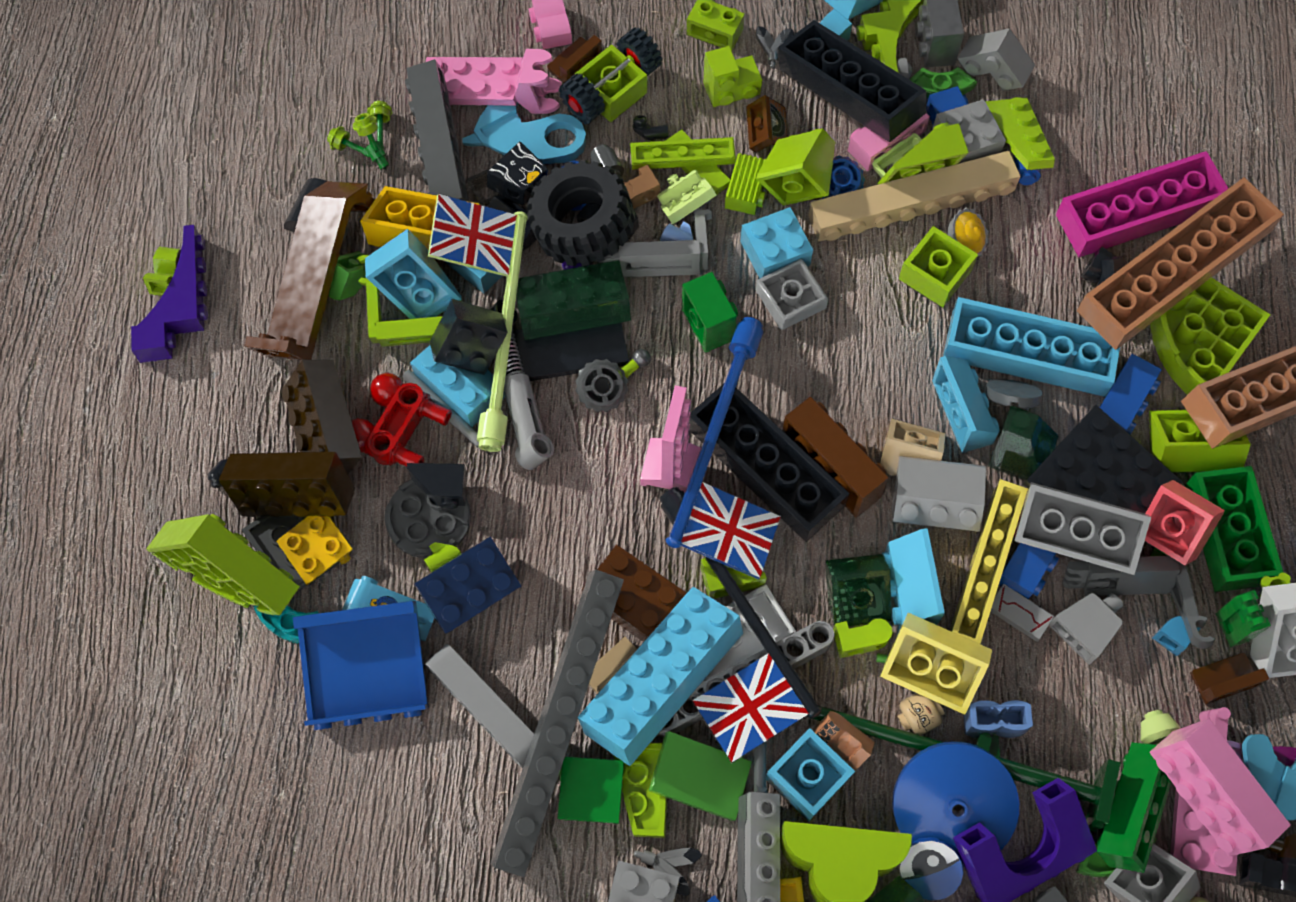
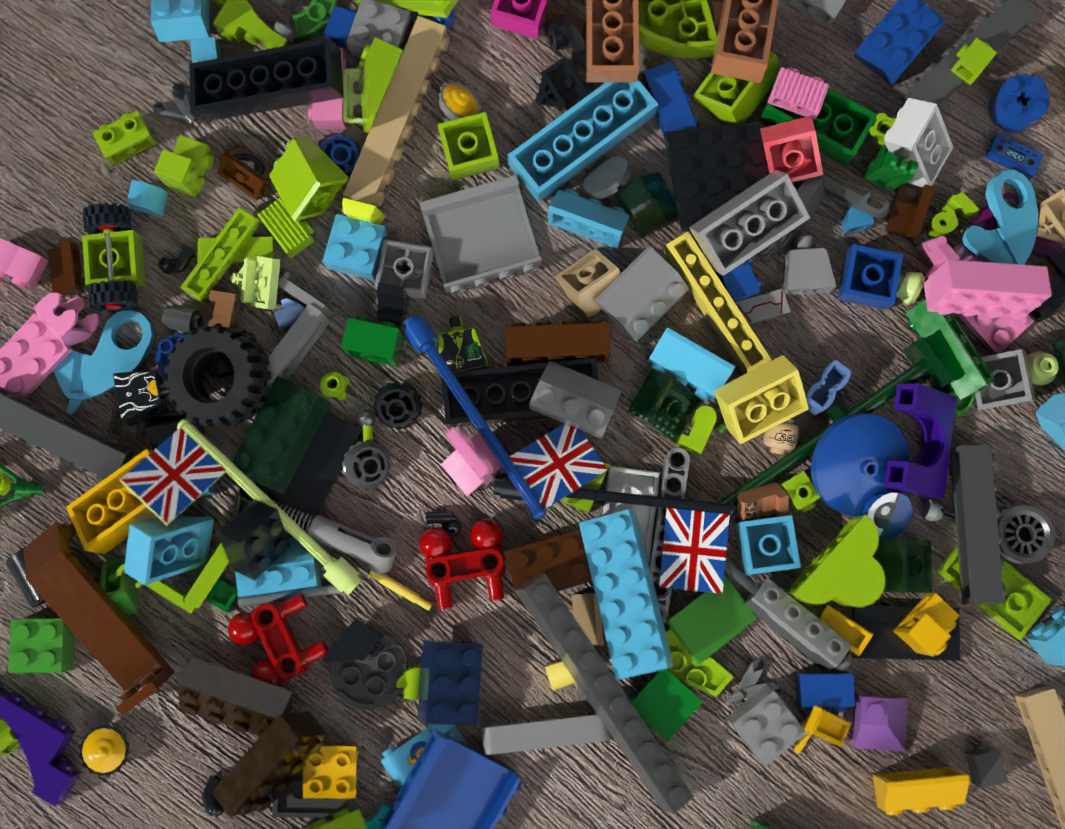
camera: 50 degrees left, 15 degrees up
(205, 357) = (104, 750): none -> yellow piece
(257, 251) = (40, 646): none -> bright green brick
(401, 356) = (223, 595): none -> green tile
(516, 490) = (400, 589): none -> light yellow piece
(542, 676) = (559, 675): none -> light yellow brick
(579, 525) = (436, 545): none -> red piece
(607, 483) = (446, 519): none -> black arm
(647, 313) = (339, 391): none -> lime brick
(671, 369) = (397, 405): none -> black piece
(681, 71) = (146, 198): none -> medium azure brick
(755, 300) = (392, 303): none -> black arch
(765, 384) = (461, 347): none -> black torso
(797, 500) = (575, 399): none -> light grey slope
(810, 224) = (362, 211): none -> neon yellow piece
(874, 333) = (481, 235): none -> light grey panel
(883, 770) = (800, 492): none -> lime brick
(1056, 300) = (560, 86): none -> black slope
(1134, 683) = (870, 277): none -> blue brick
(1235, 486) = (798, 92): none -> bright pink brick
(1247, 717) = (946, 219): none -> lime leg

